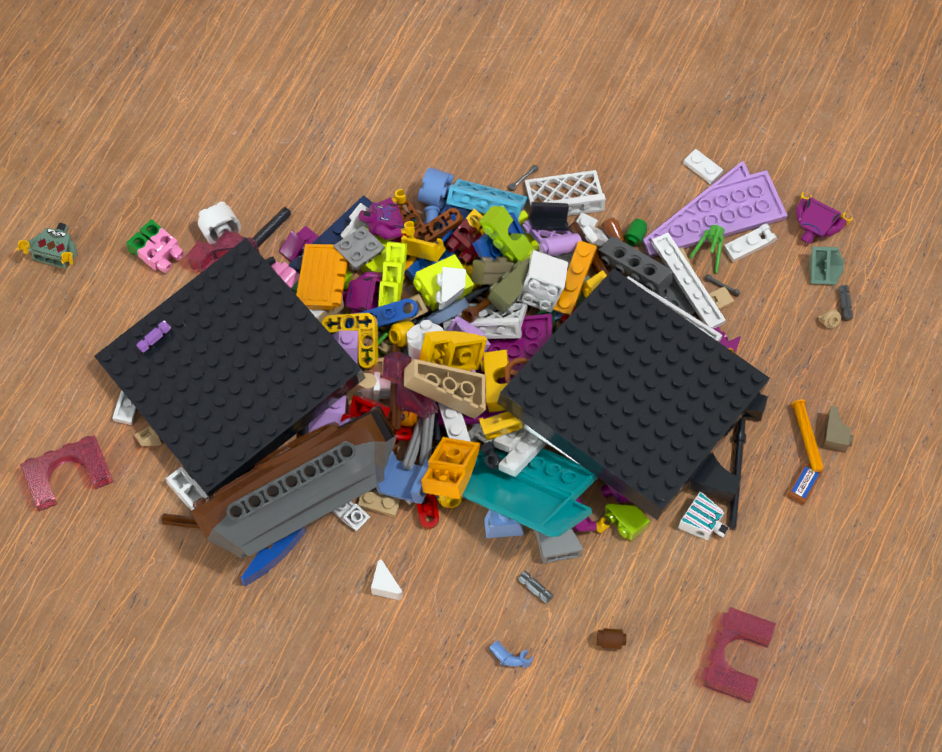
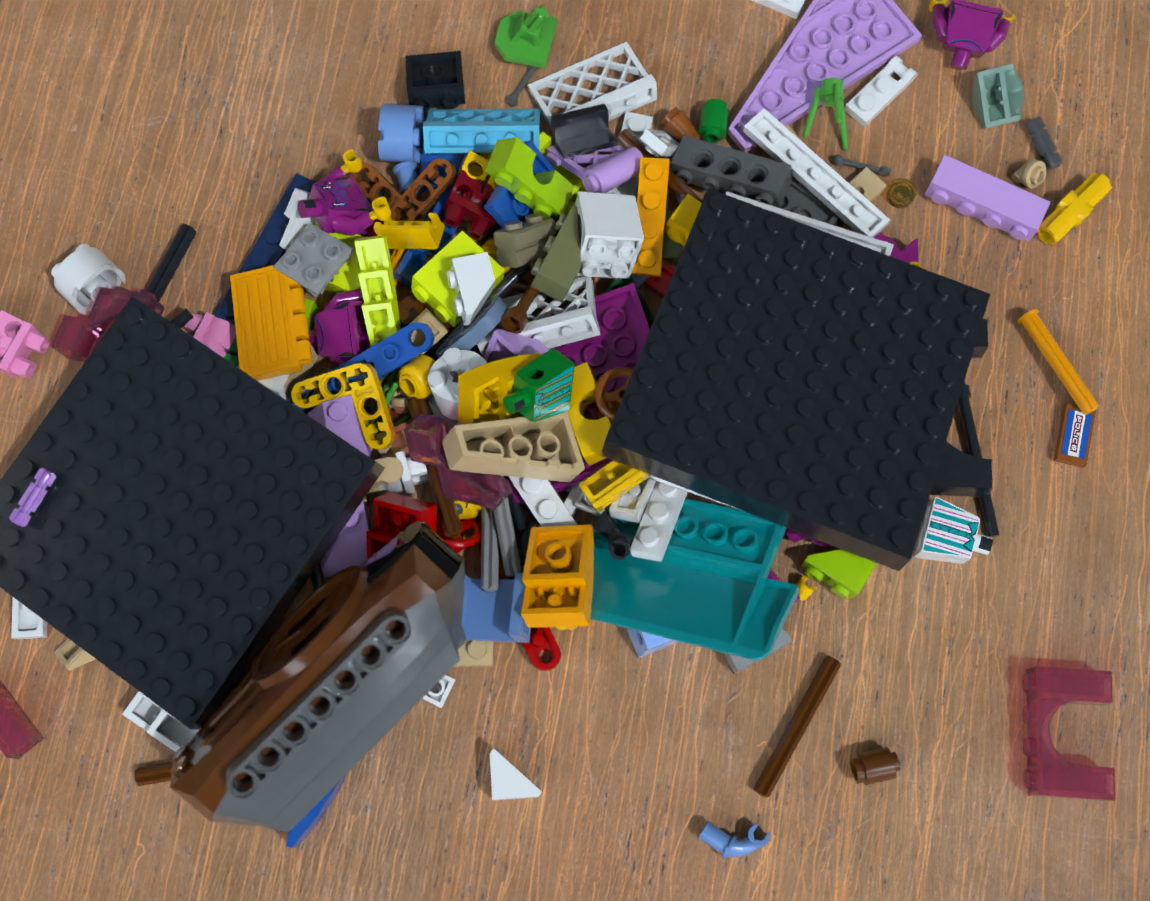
camera: 15 degrees left, 10 degrees up
(296, 243) = (215, 276): magenta slope -> none
(467, 162) = (435, 80): none -> black plate
(473, 354) = (542, 387): none -> green torso
(533, 151) = (526, 37): none -> bright green piece
(536, 587) = (737, 716): axle -> none
(571, 603) = (797, 727): none -> reddish brown axle
(742, 308) = (901, 193): none -> clear yellow tile
(795, 326) = (987, 198): none -> lavender brick
(836, 434) = (1095, 346): dark tan arch -> none
(850, 347) = (1074, 208): none -> yellow piece

